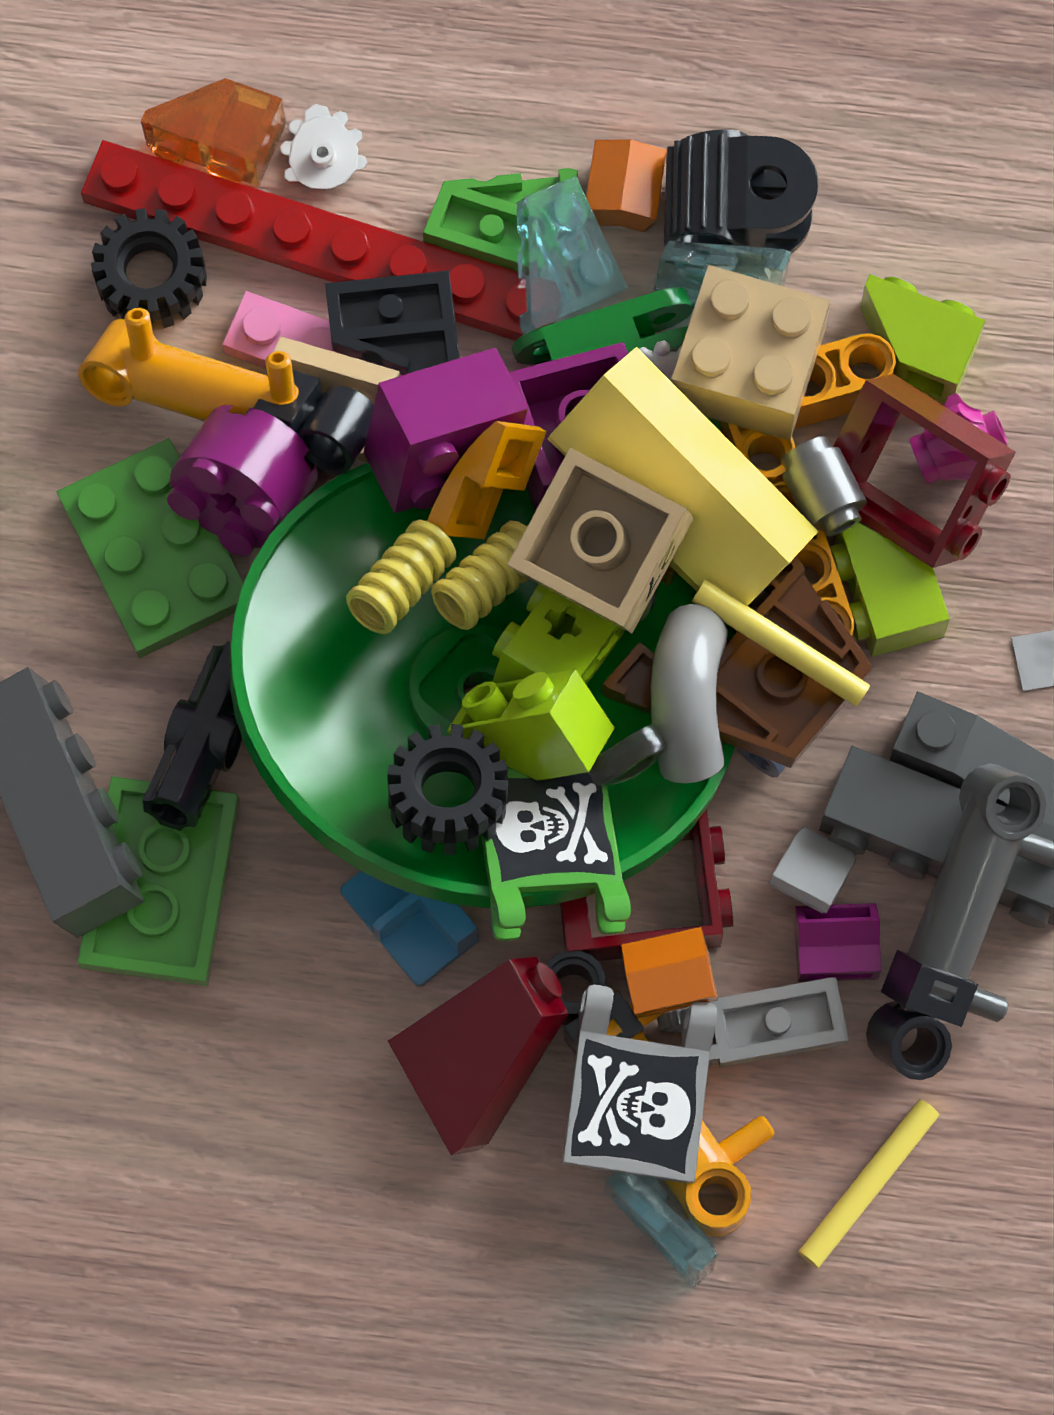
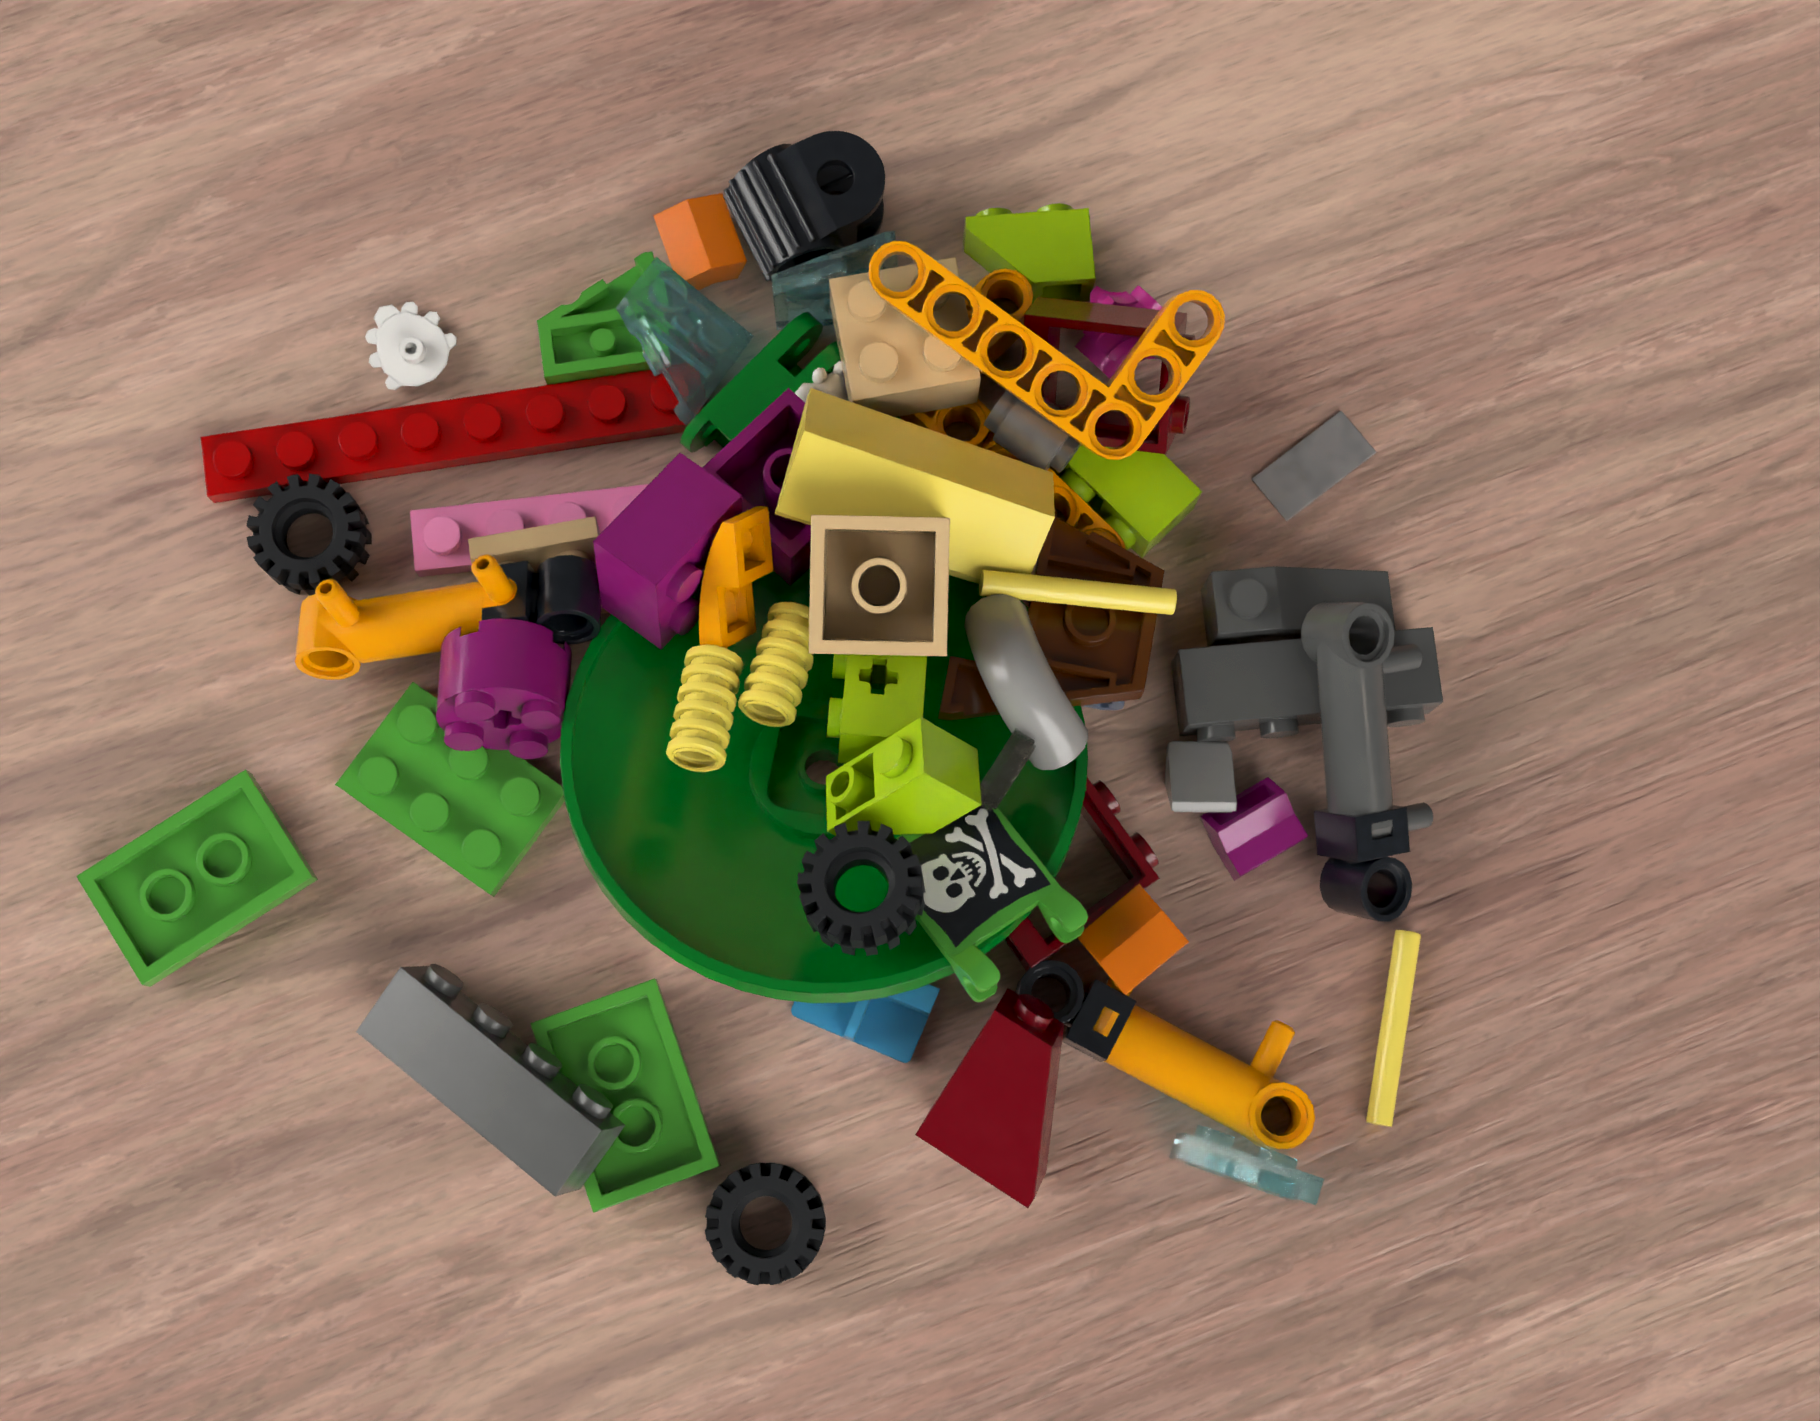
camera: 35 degrees left, 5 degrees up
(191, 1025) = (724, 1228): none -> black tyre
(197, 746) = (595, 954): black piece -> none
(219, 128) = (303, 372): clear orange slope -> none
(394, 320) = (566, 472): black wing -> none
(637, 1100) = (1167, 1071): flag -> none
(772, 1022) = (1233, 937): light grey hinge -> none
(851, 422) = (1041, 358): none -> light orange beam

